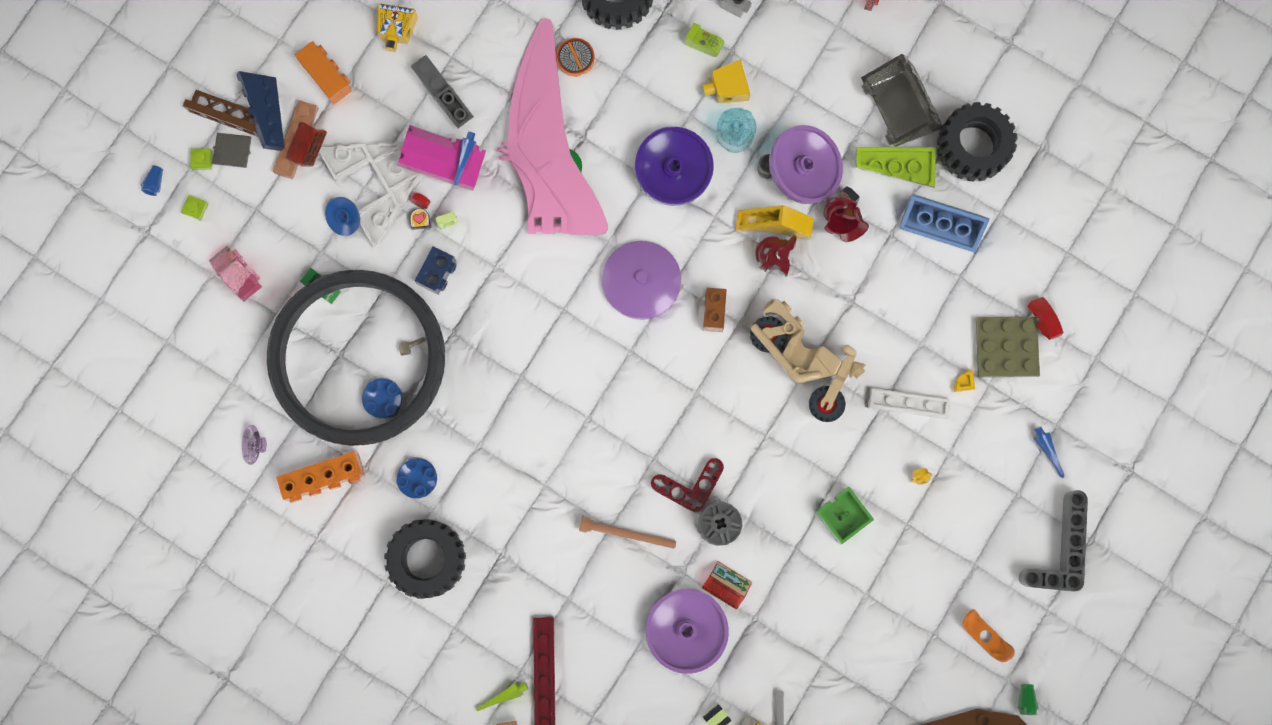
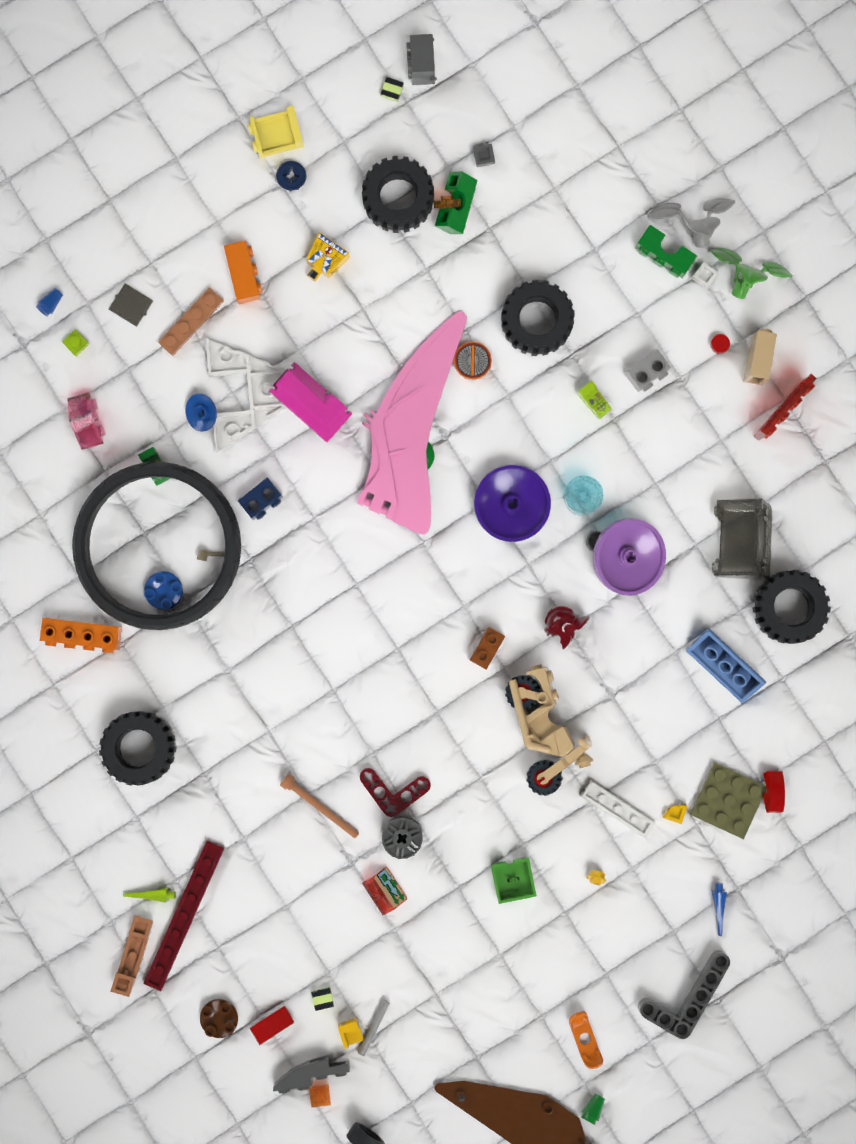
camera: 25 degrees right, 5 degrees up
(201, 159) = (100, 301): lime plate -> none
(221, 117) = (133, 271): reddish brown fence -> none
(252, 447) = (36, 580): clear purple piece -> none
(264, 106) = (176, 281): dark blue wing -> none
(306, 145) = (197, 333): clear red panel -> none
(417, 478) = (162, 674): blue dish -> none
(419, 219) = (267, 445): tile -> none
(420, 200) = (275, 429): red tile -> none
(441, 92) = (339, 339): dark grey slope -> none
(447, 220) = (290, 458): yellowish green tile -> none
(466, 148) = (334, 408): blue piece -> none
(641, 280) = (436, 590): medium lavender dish -> none
(687, 631) = (331, 914): medium lavender dish -> none
(728, 84) = (596, 450): yellow torso -> none
(775, 219) = (578, 595): yellow arch -> none
(844, 219) = (639, 621): dark red helmet -> none
(849, 192) = (655, 602): black tile -> none
(903, 163) = (716, 593): lime wing -> none

